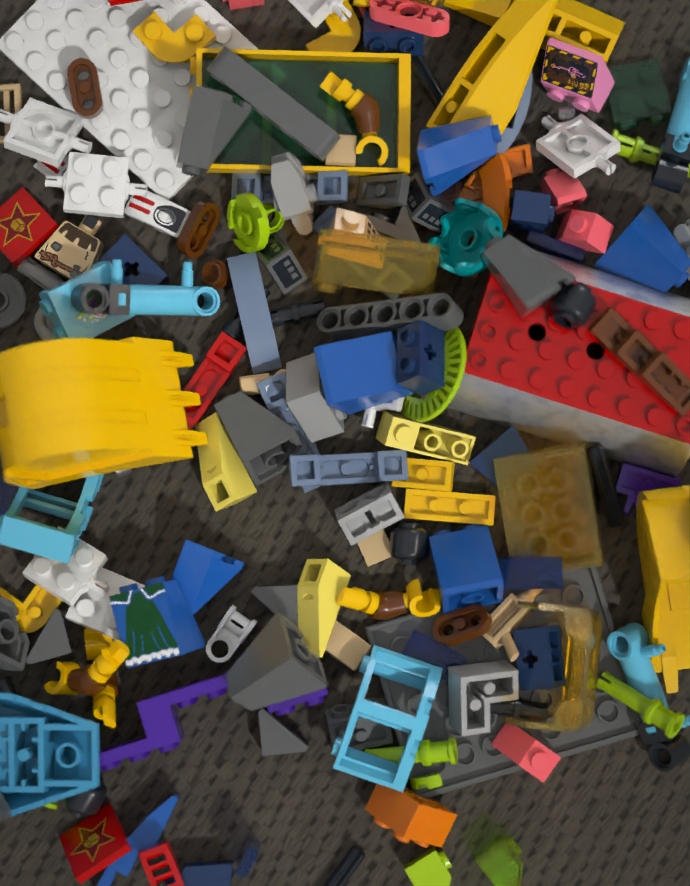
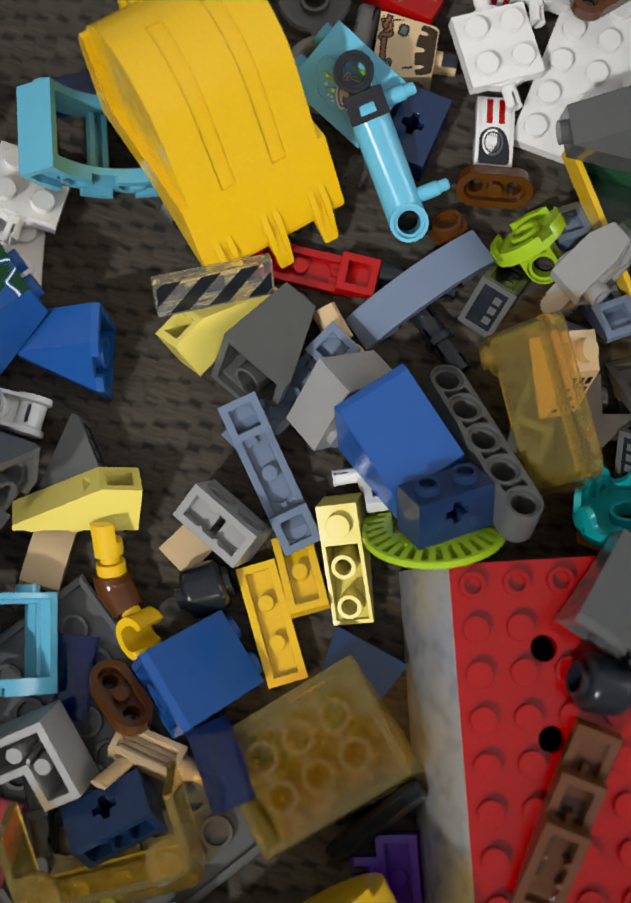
camera: 80 degrees right, 5 degrees down
(200, 456) = (213, 285): none -> clear tile

